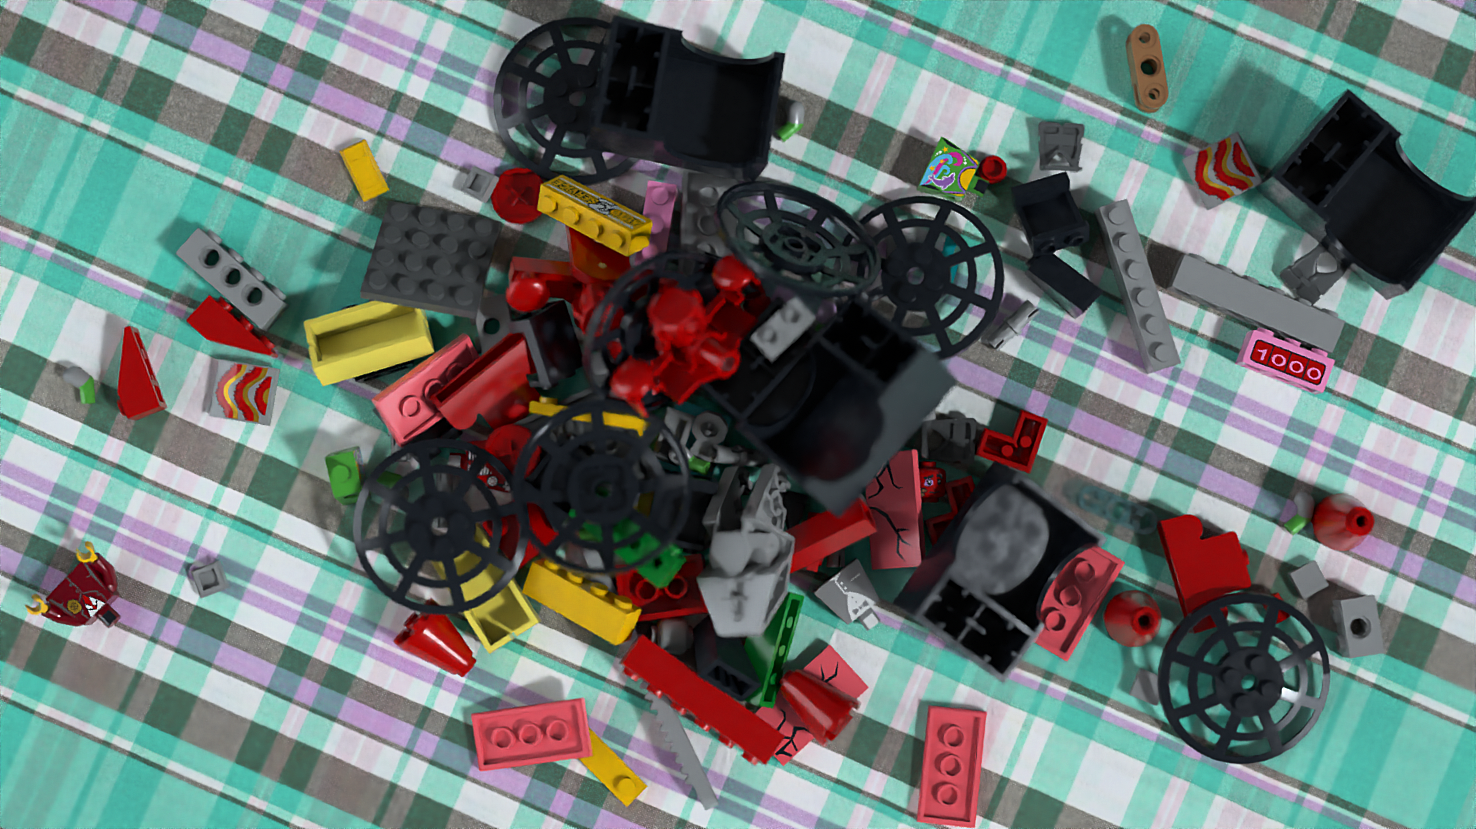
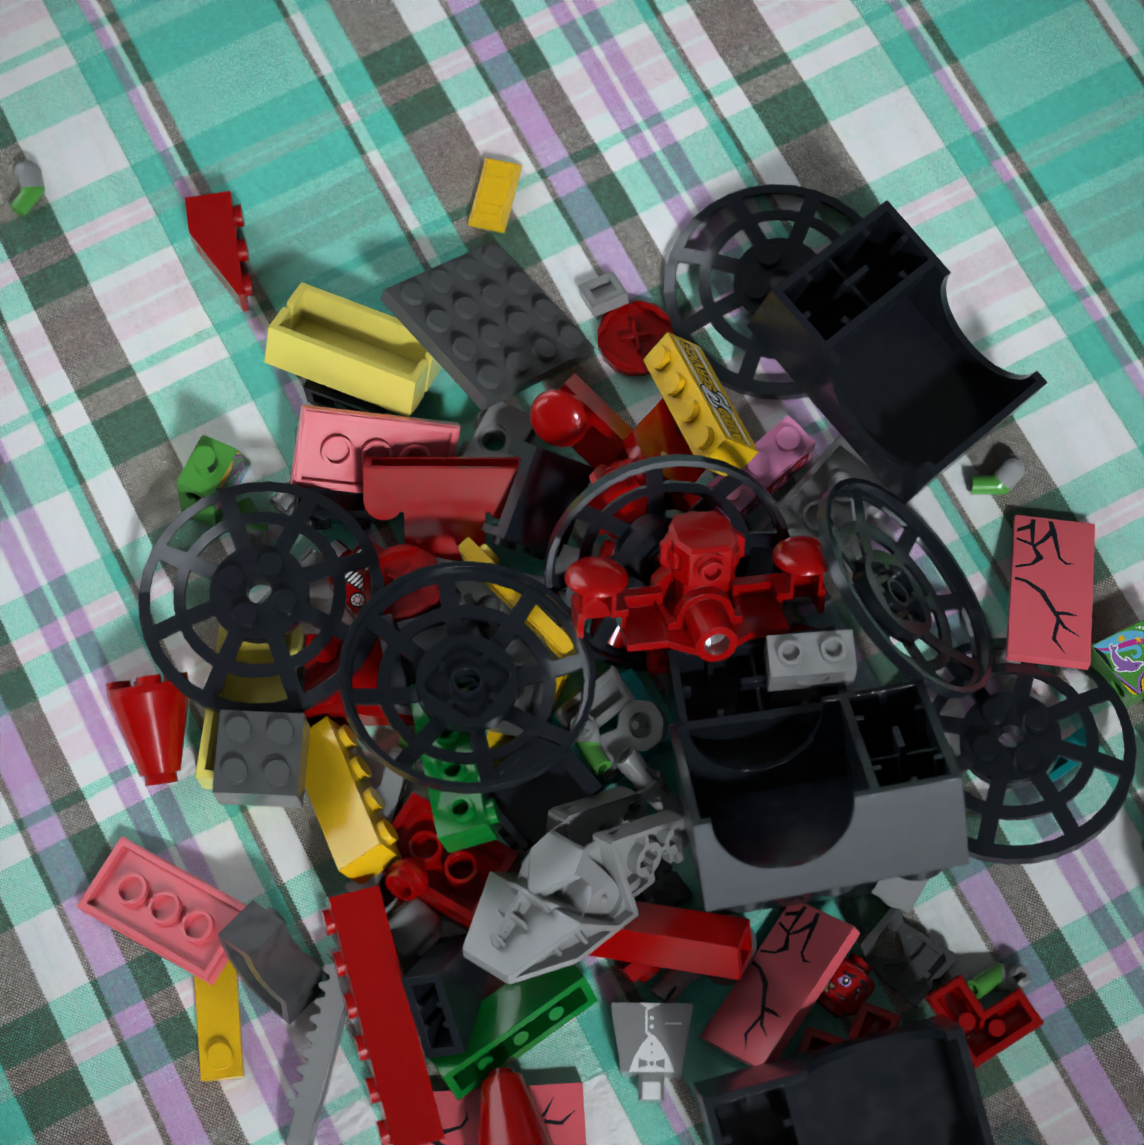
camera: 45 degrees right, 15 degrees down
(137, 382) = (85, 222): red slope -> none
(196, 253) = (254, 145): light grey brick -> none
(244, 392) = (181, 317): slope -> none
(520, 617) = (261, 758): none -> dark grey brick
(613, 716) = (271, 961): none -> flat silver brick
(654, 616) = (407, 878): none -> red plate
(872, 168) = (1051, 592): none -> coral tile
(1004, 411) = (999, 978): none -> arm
(1012, 325) = (1082, 886): light grey pin -> none

